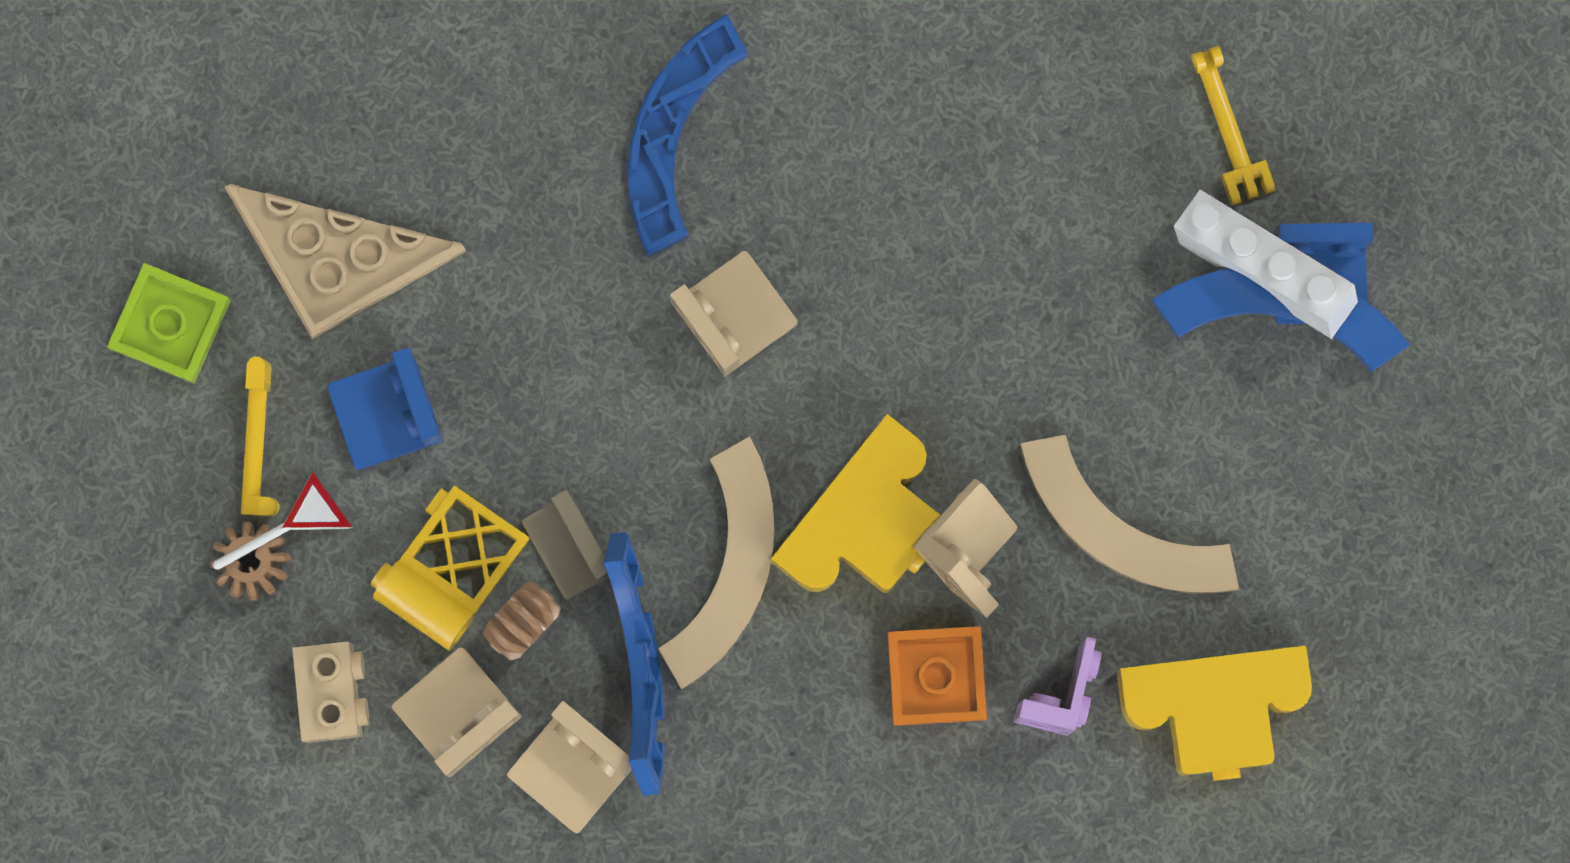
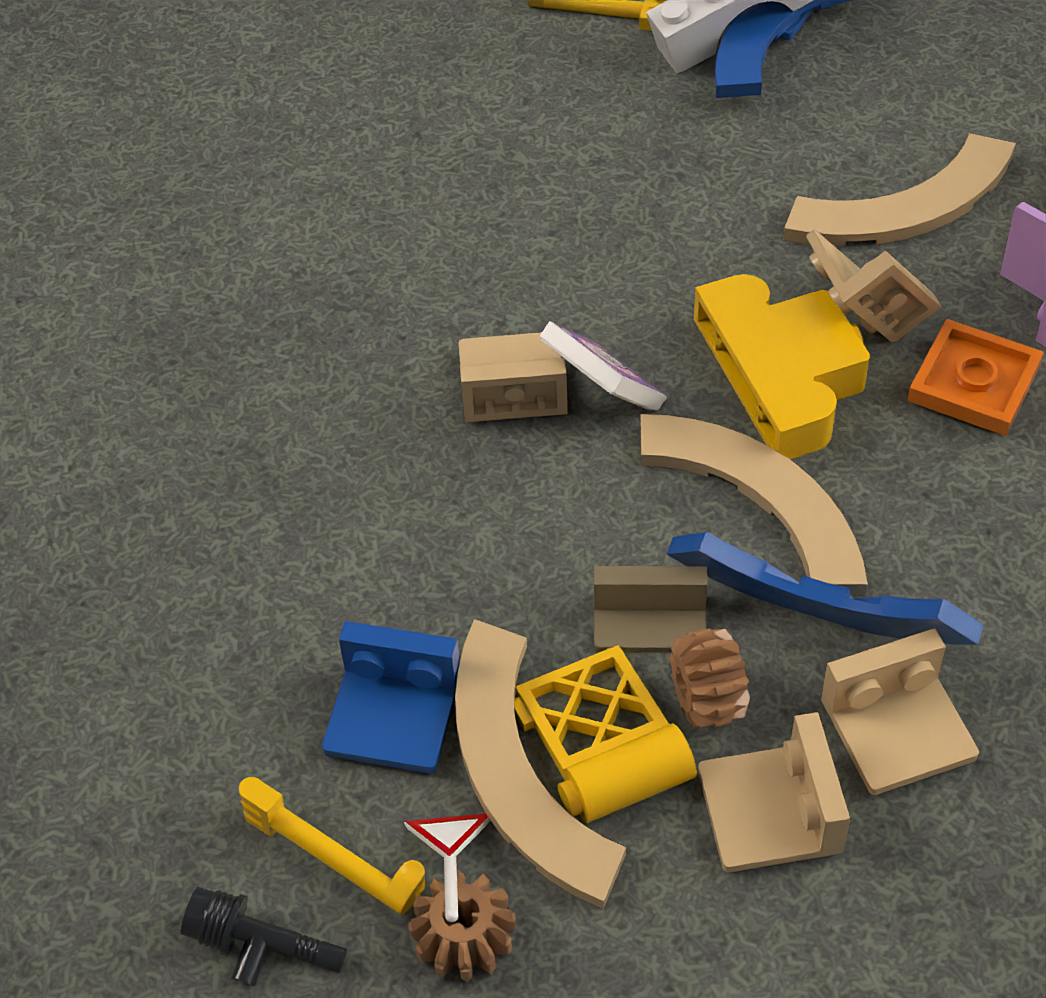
camera: 55 degrees left, 30 degrees down
(164, 402) = (220, 919): none -> black piece
(169, 323) = (134, 872): lime plate -> none
(329, 692) = (670, 920): tan brick -> none
(335, 260) = (191, 687): tan tile -> none
(378, 517) = (505, 780): none -> tan tile
(660, 127) = (300, 362): blue tile -> none
(763, 387) = (602, 367): none -> white tile

